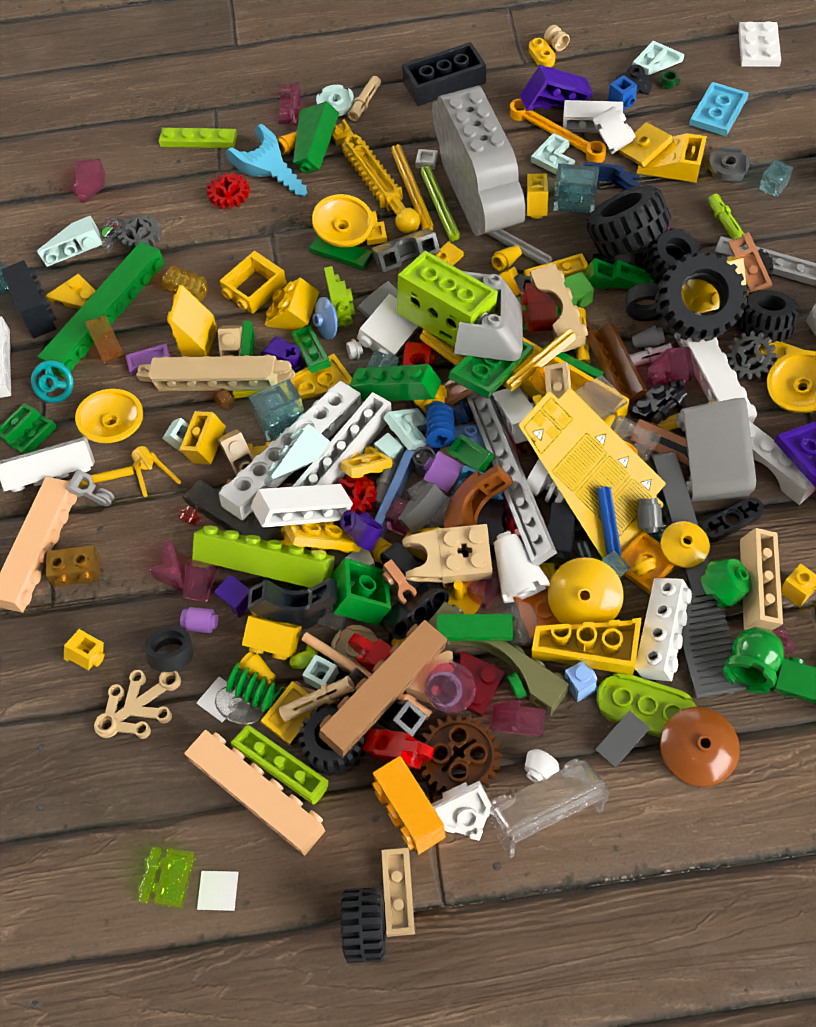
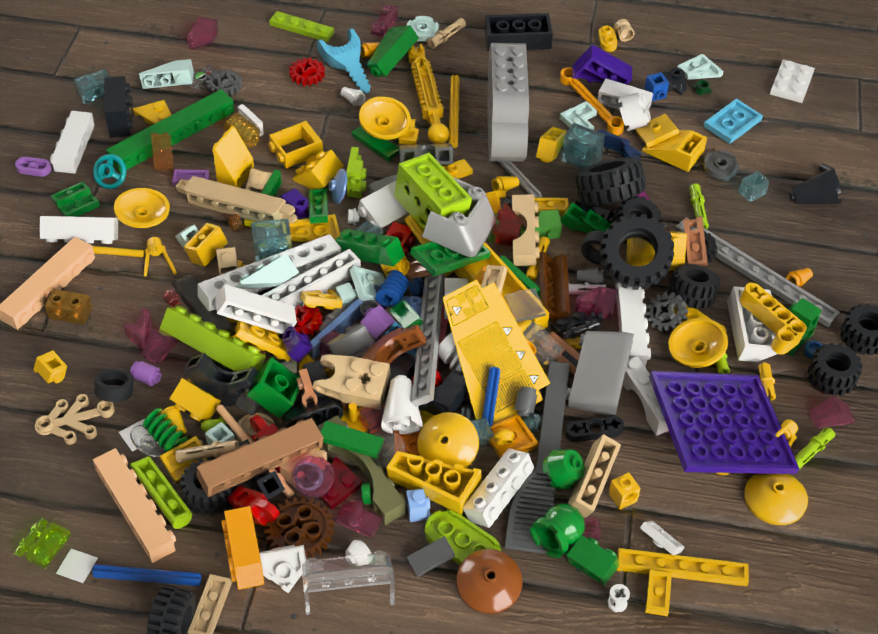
camera: 10 degrees right, 10 degrees down
(102, 496) = (112, 264): light grey piece -> none
(187, 264) = (245, 112): none -> white tile
(234, 594) = (178, 360): dark purple panel -> none
(295, 204) = (354, 96): none -> white cone
(306, 875) = (147, 575): none -> blue axle
(426, 158) = (476, 93): white tile -> none
(440, 203) = (471, 128): lime axle -> none
(540, 359) = (496, 260): yellow axle -> none
(680, 553) = (541, 439): yellow dish -> none

